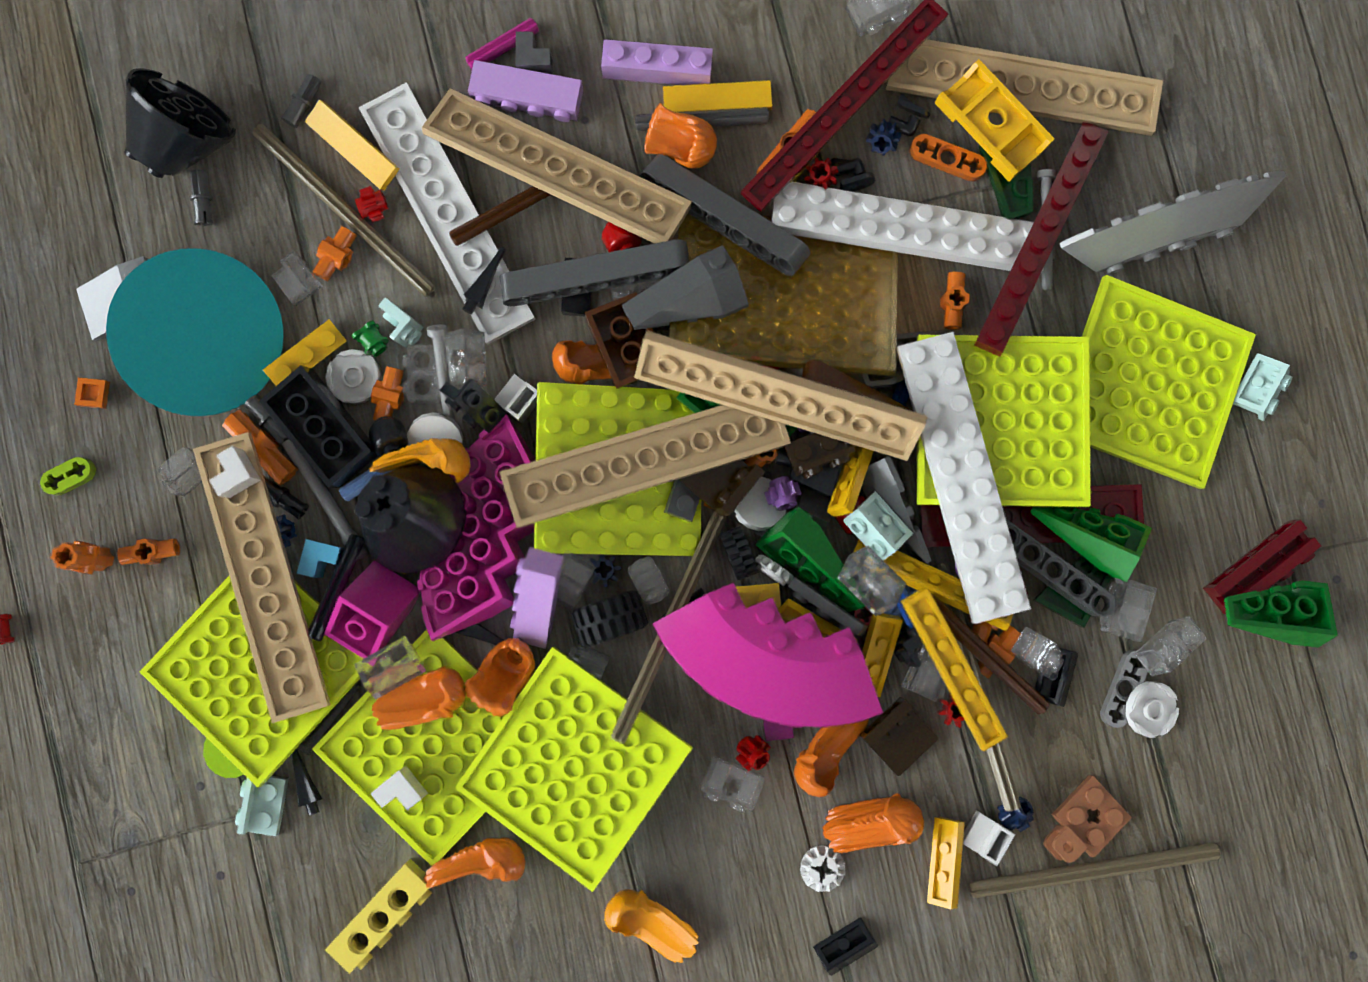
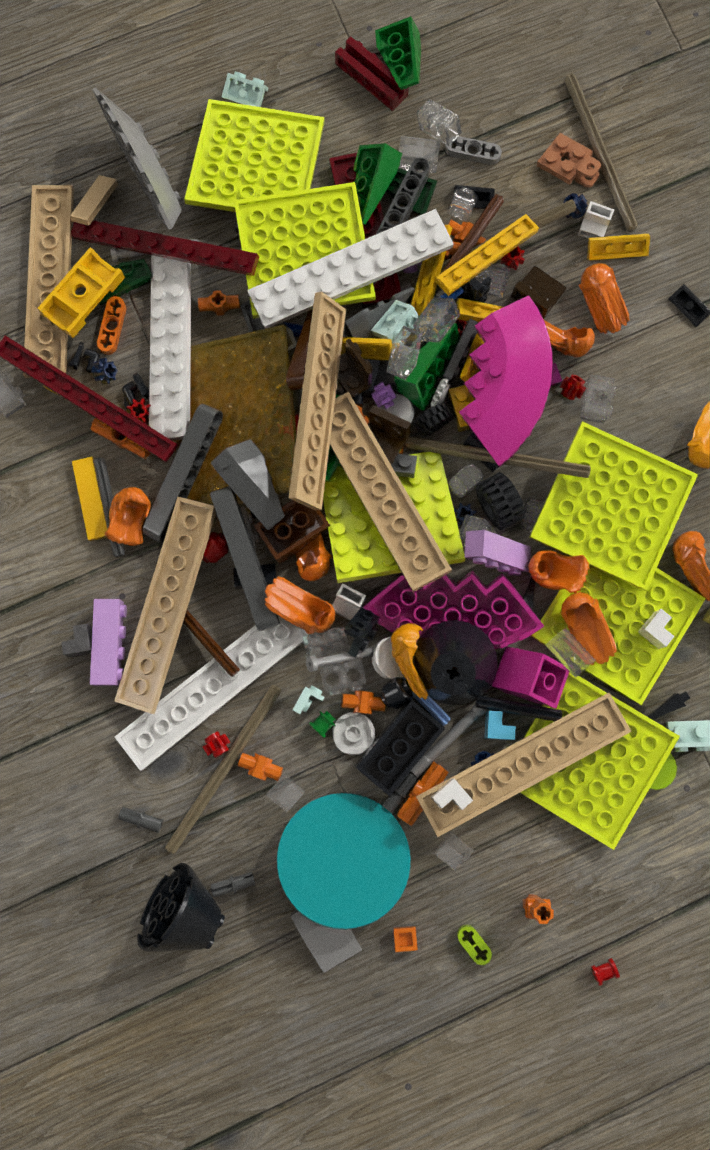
camera: 100 degrees left, 5 degrees down
(137, 552) = (524, 875): orange axle -> none
(282, 498) = (460, 762): black pin -> none
(306, 352) = (344, 773): yellow plate -> none
(352, 145) = (171, 770): yellow tile -> none
(478, 291) = (273, 646): black piece -> none
(501, 44) = (71, 669): dark pink axle -> none
(520, 332) = (299, 606): none -> orange hair
(656, 63) = (71, 546): lavender brick -> none
(816, 857) = (635, 333): white gear -> none
(826, 524) = (404, 352): none -> clear brick
(1127, 158) = (94, 200): none -> tan tile
(1152, 709) = (483, 129): white tile -> none

